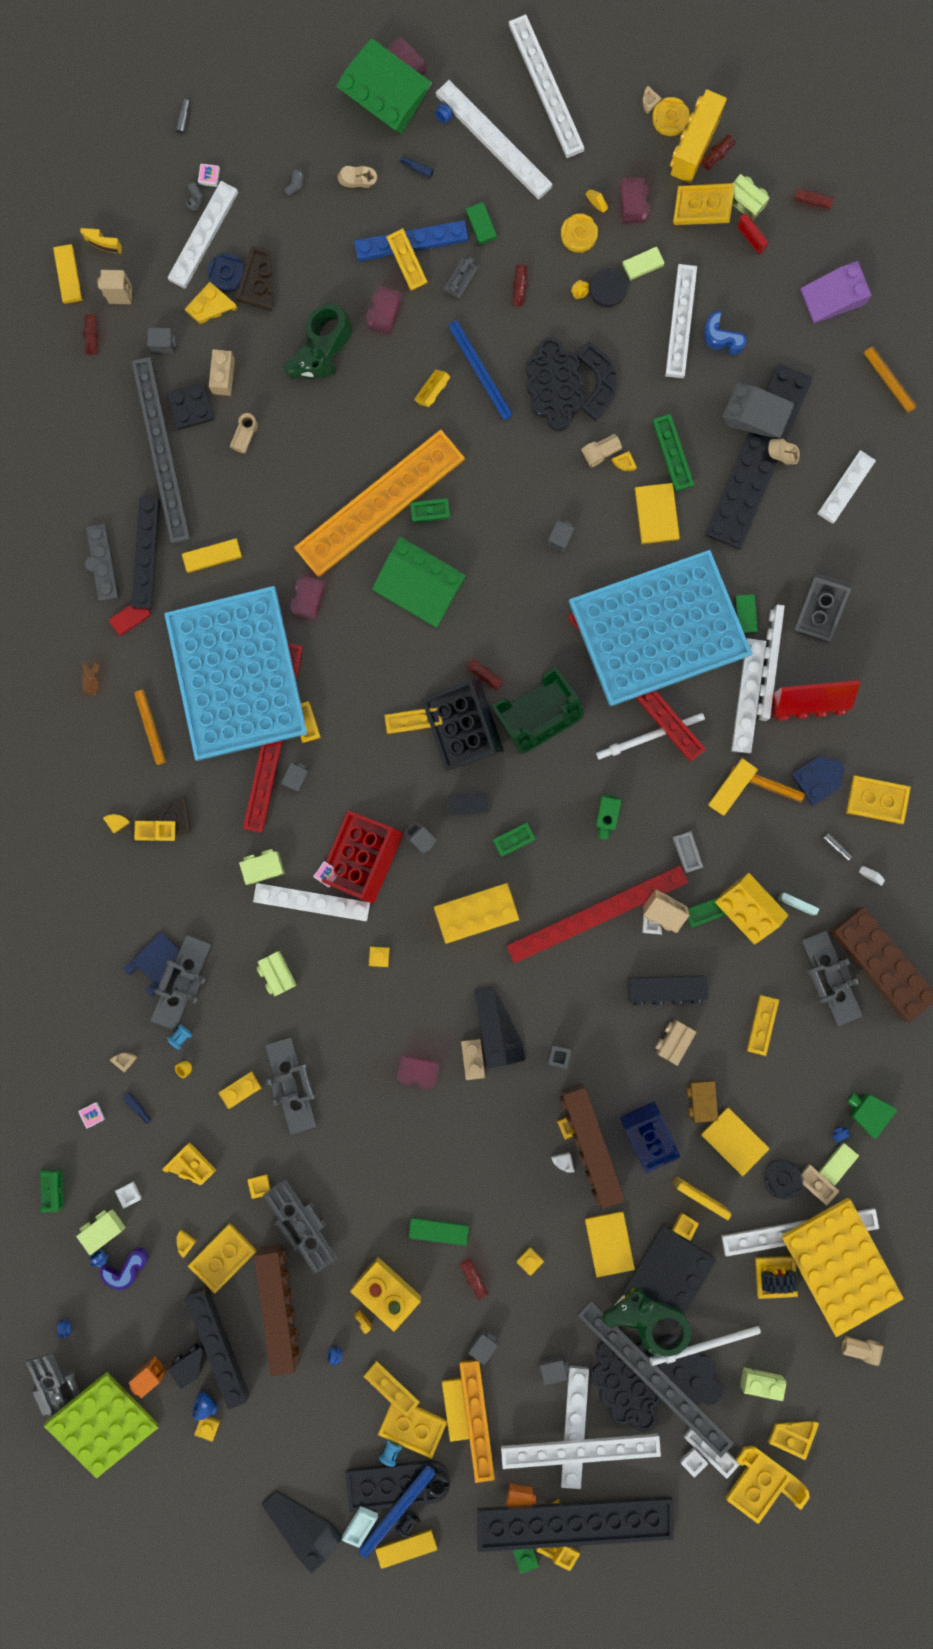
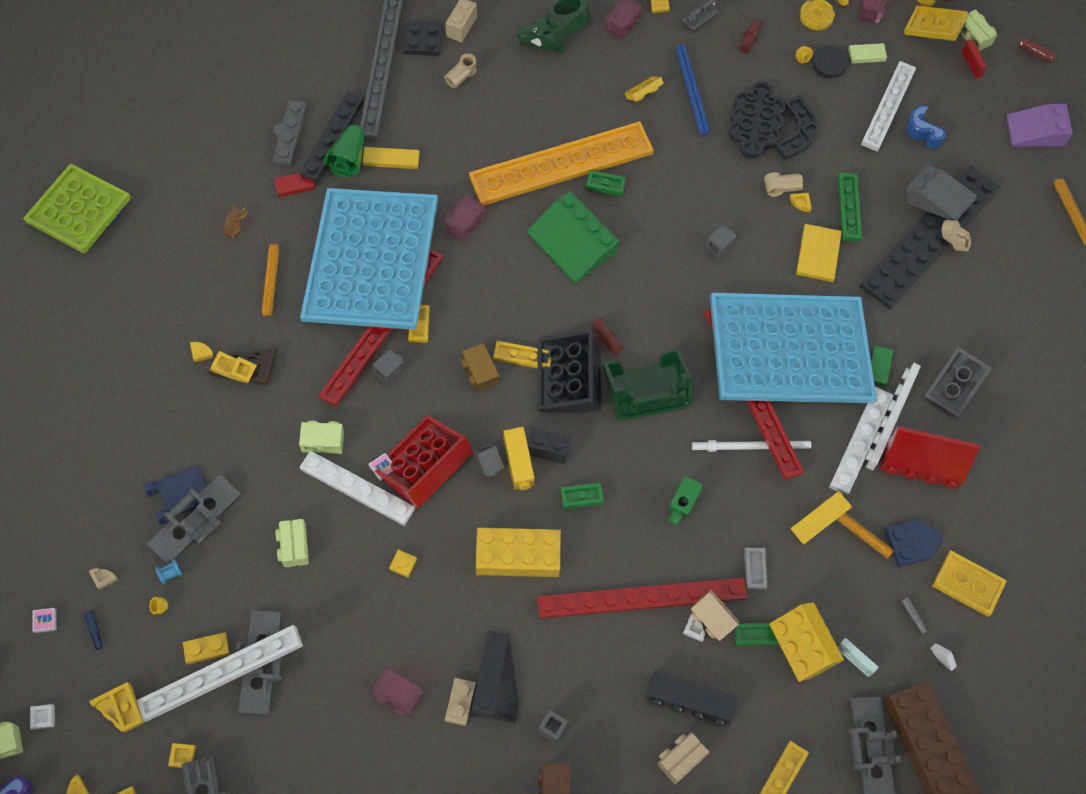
camera: 15 degrees right, 20 degrees down
(168, 568) = (346, 152): none -> green cone
(263, 1111) = (219, 673): none -> white plate
(379, 748) = (480, 367): none -> pearl gold brick
(447, 828) = (518, 458): none -> yellow slope
(846, 487) = (1008, 287): white plate -> none

